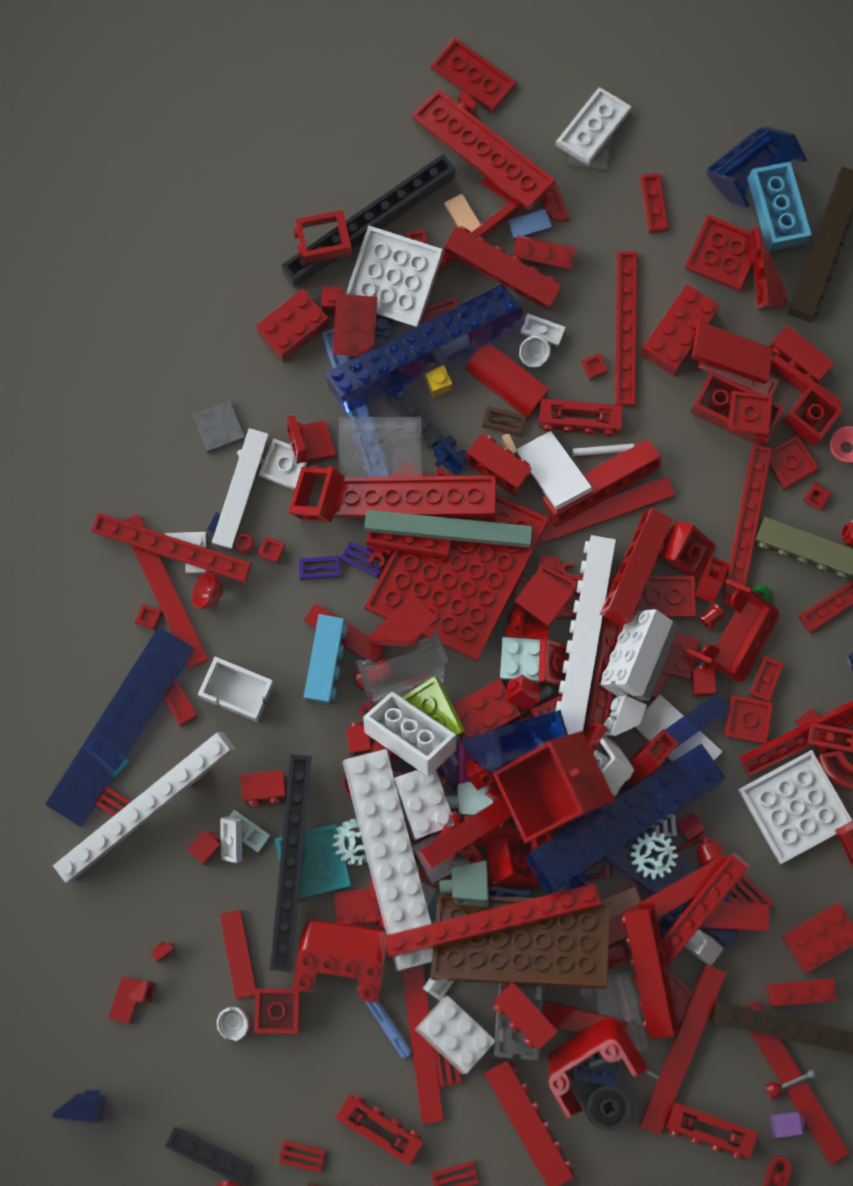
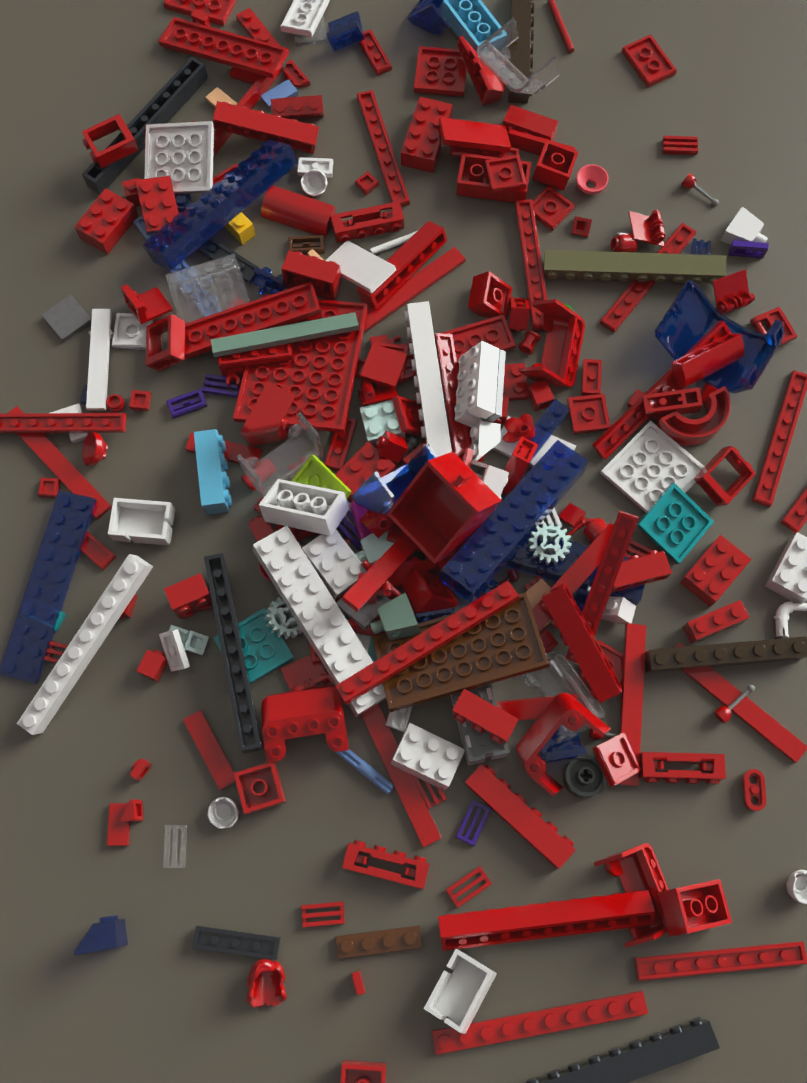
camera: 15 degrees left, 5 degrees down
(163, 1048) = (175, 828): none -> clear tile
(468, 671) = (340, 446): none -> red tile
(492, 1102) = (465, 839): none -> dark purple tile
(530, 136) = (254, 27): none -> red plate
(629, 168) = (345, 31): none -> clear blue bracket
(636, 567) = (453, 319): red brick -> none
(645, 1101) = (616, 759): none -> tile
(664, 713) = (518, 428): none -> red plate
(787, 1124) = (745, 739): medium lavender brick -> none
(792, 257) = (496, 57): none -> clear windscreen
(796, 873) = (675, 523): none -> teal plate

